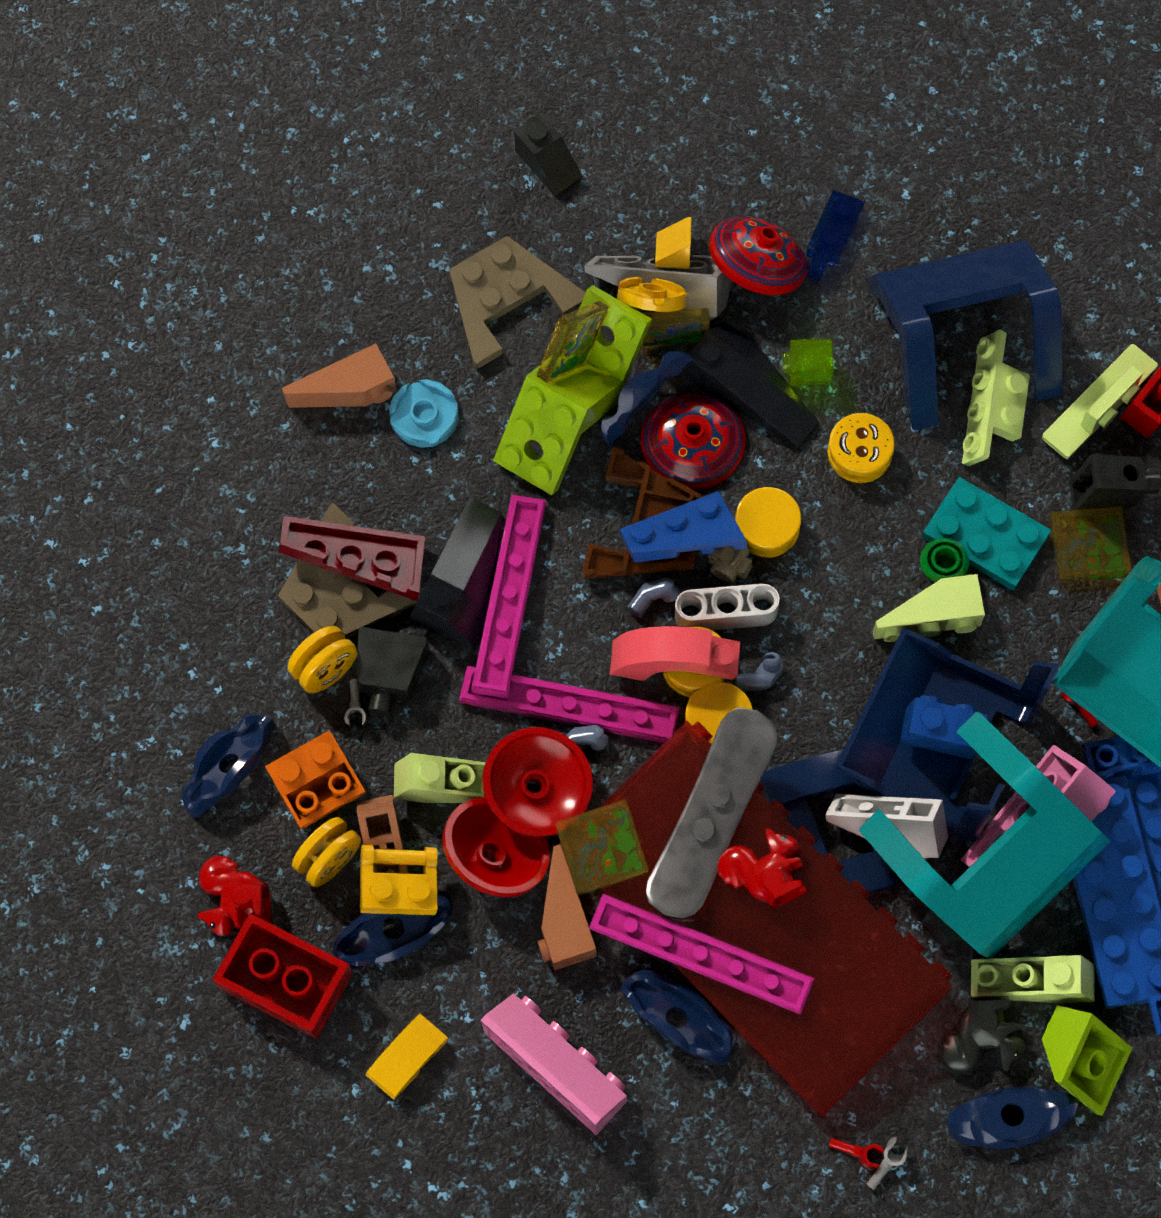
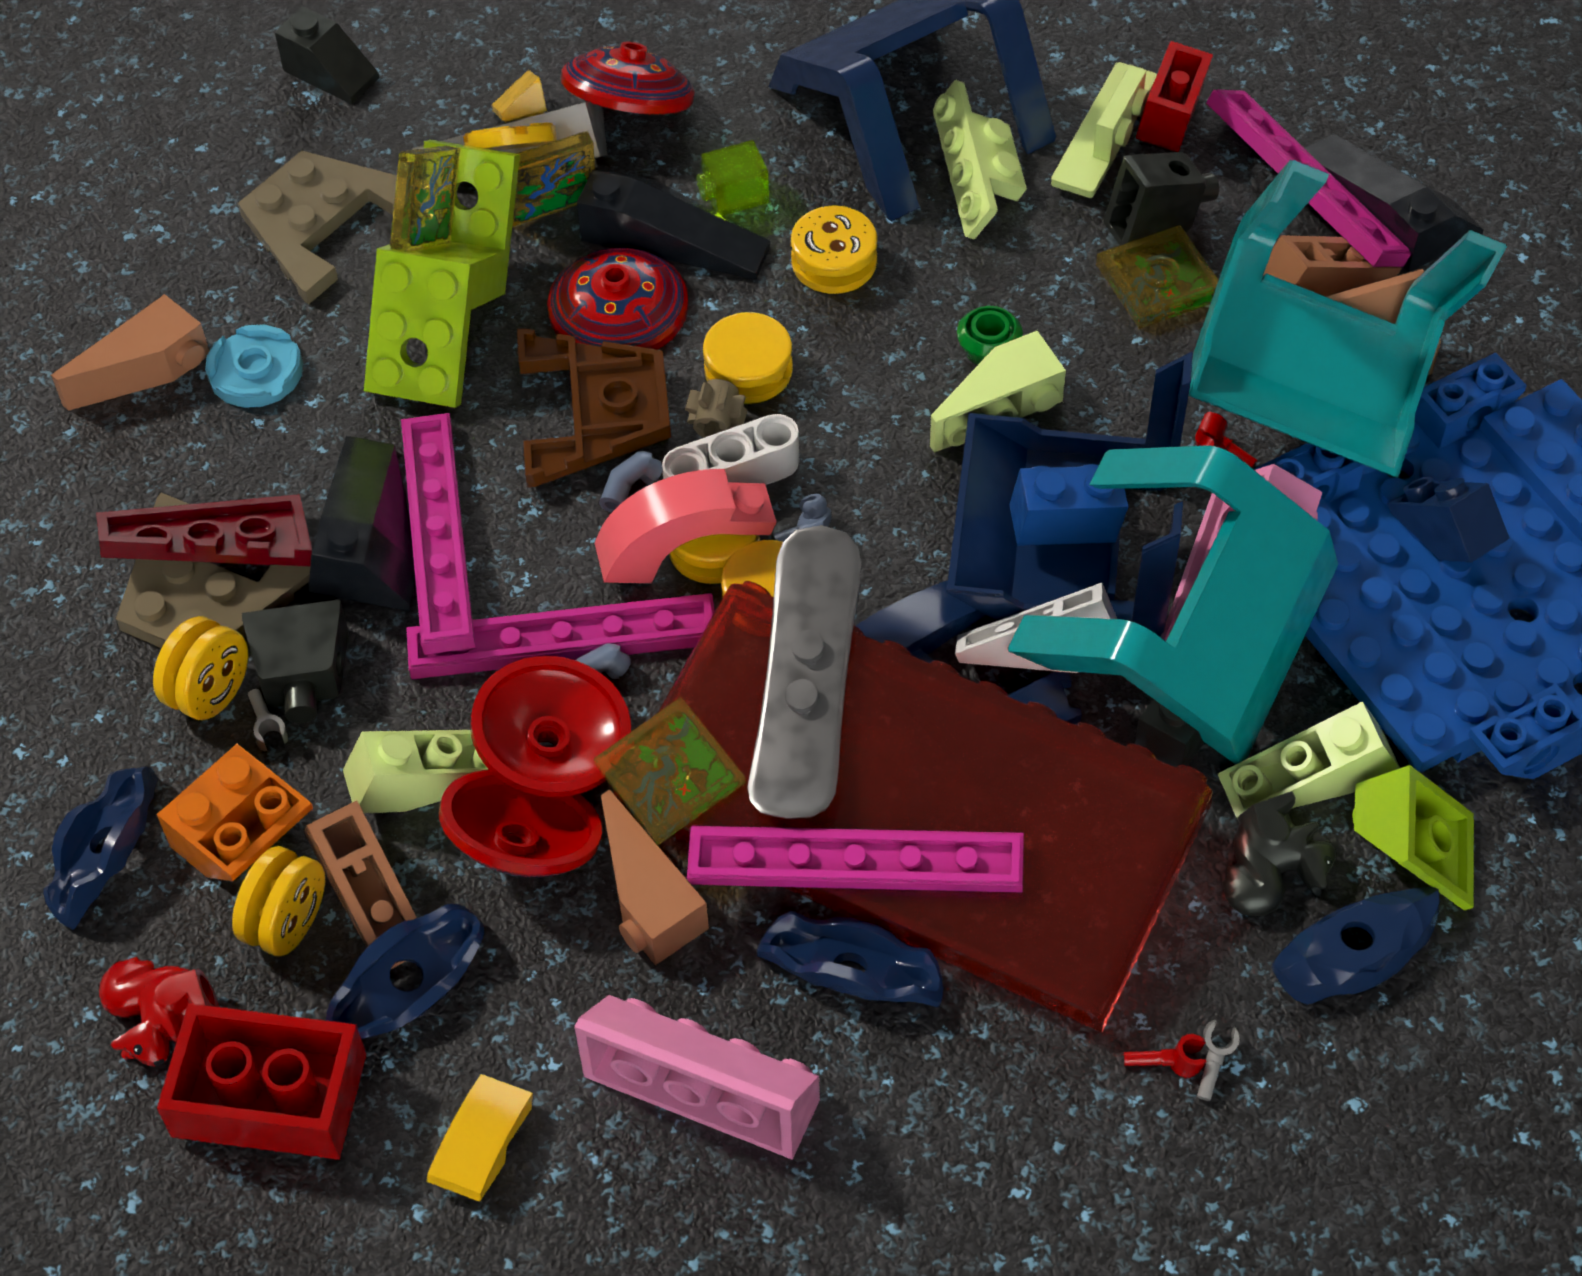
camera: 20 degrees left, 15 degrees down
(395, 891) = (400, 913): yellow plate -> none
(640, 392) = (532, 255): dark blue piece -> none
(689, 527) = (656, 374): blue wing -> none
(767, 877) = (912, 724): red animal -> none
(833, 232) = (710, 49): clear blue hinge -> none
(994, 534) = (1040, 293): teal plate -> none

